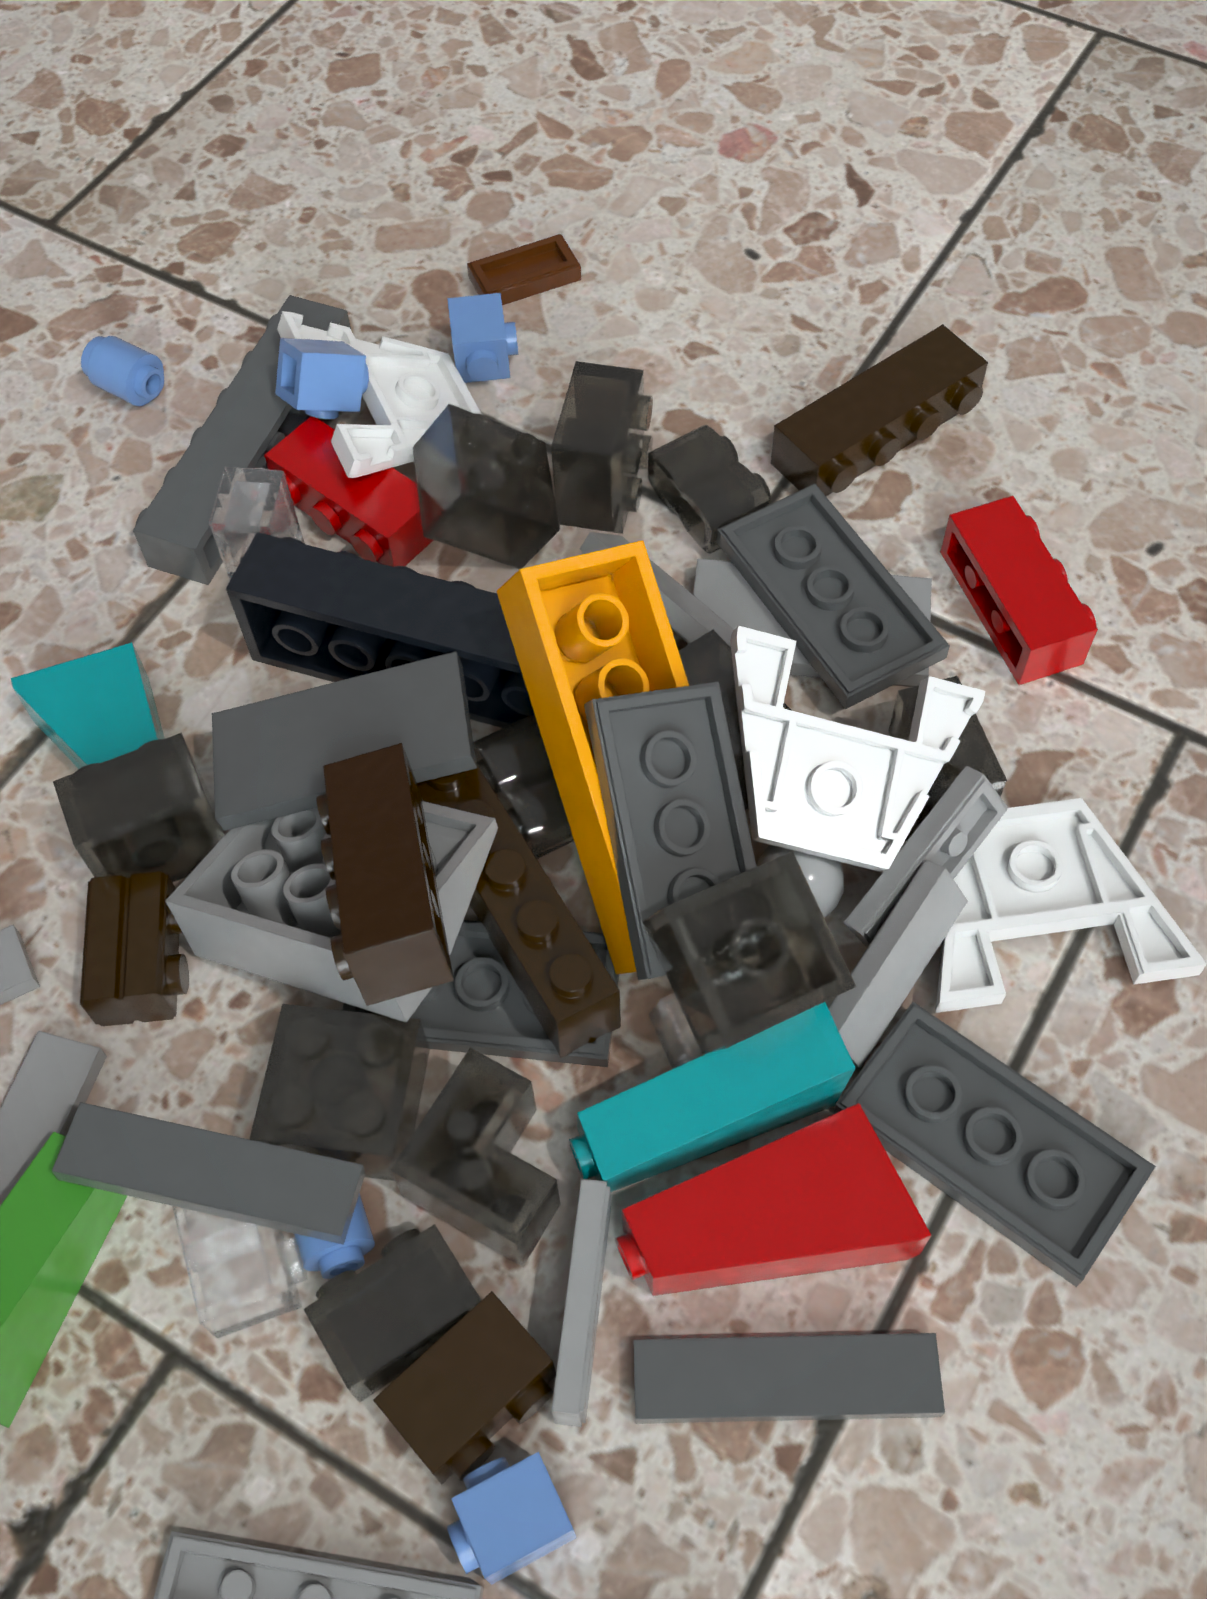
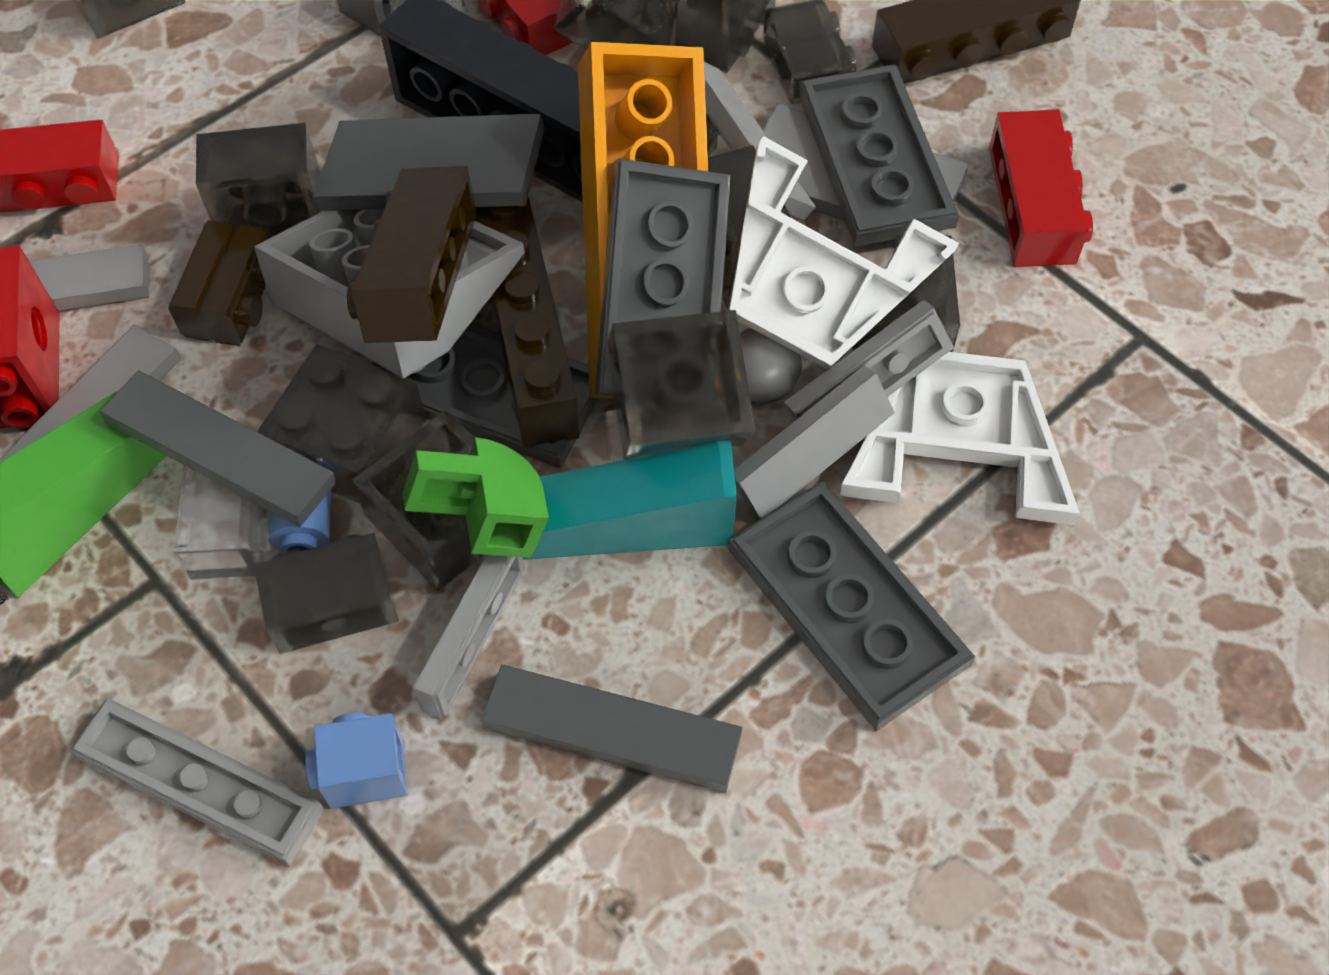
camera: 15 degrees right, 0 degrees up
(93, 705) = (257, 92): teal slope -> none
(468, 1389) = (358, 659): dark brown brick -> none
(524, 782) = (562, 231): clear smoke brick -> none
(572, 1140) = (489, 486): none -> bright green brick
(777, 1212) = (647, 603): red slope -> none

